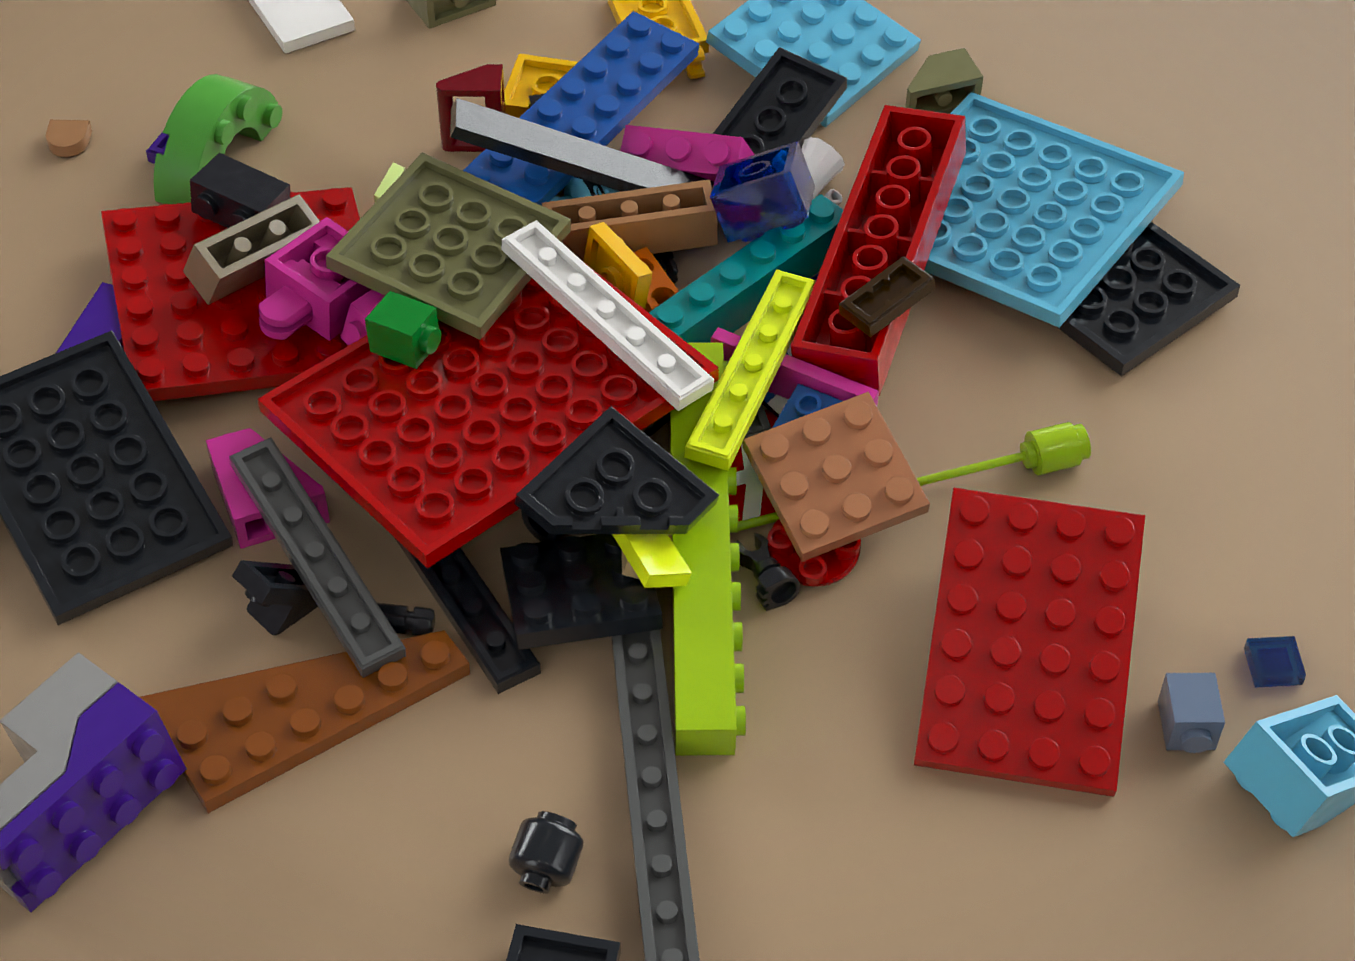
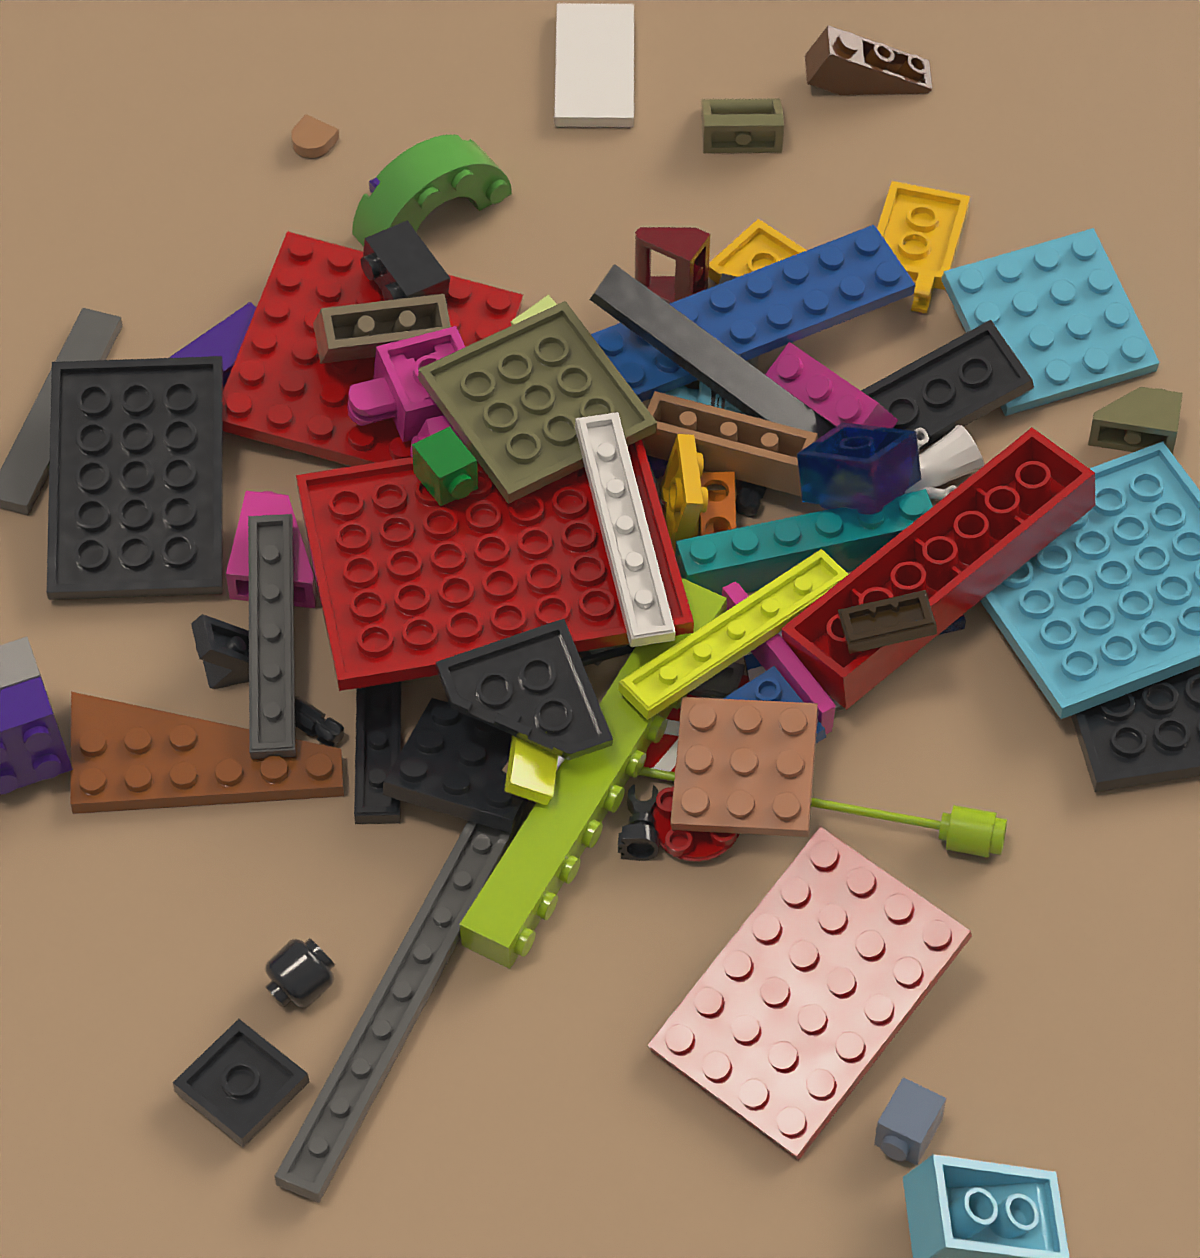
camera: 30 degrees right, 5 degrees up
(1274, 661) = (1026, 1116): clear blue tile -> none

